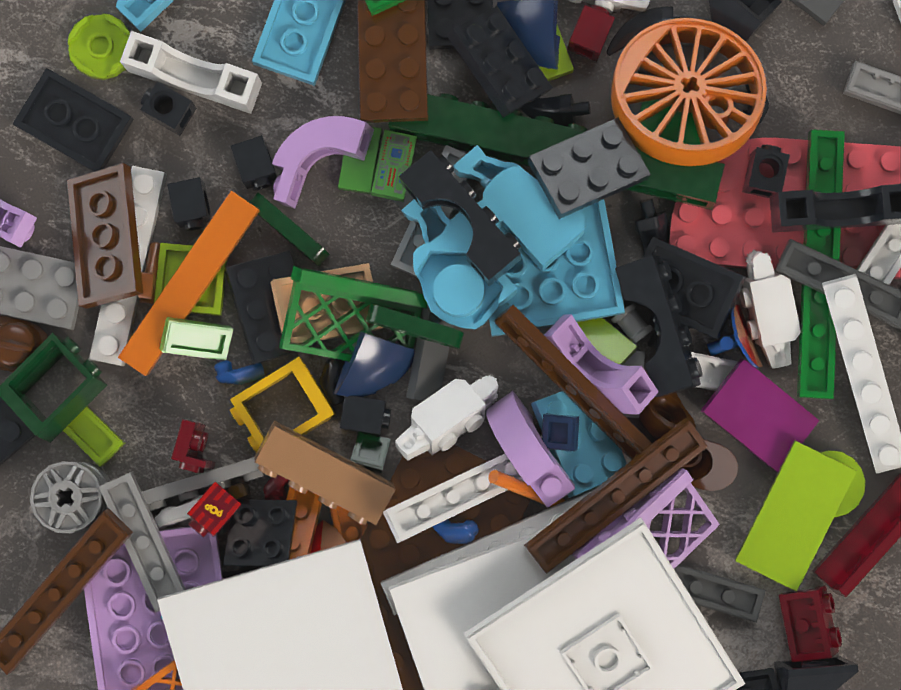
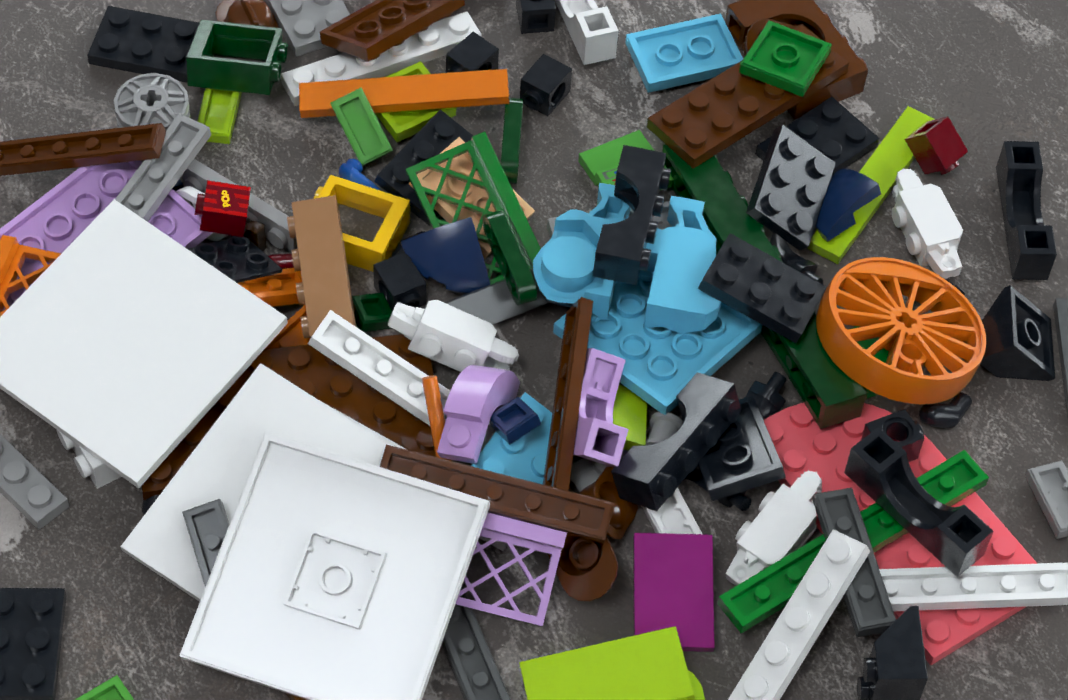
camera: 50 degrees right, 30 degrees down
(150, 275) = (382, 67): dark orange bar -> none
(189, 441) = (268, 167): dark red bracket -> none
(311, 143) = (594, 110): lavender arch -> none
(457, 532) = (353, 404): blue arm -> none
(591, 32) = (882, 241): dark red brick -> none
(738, 339) = (725, 517): shield -> none

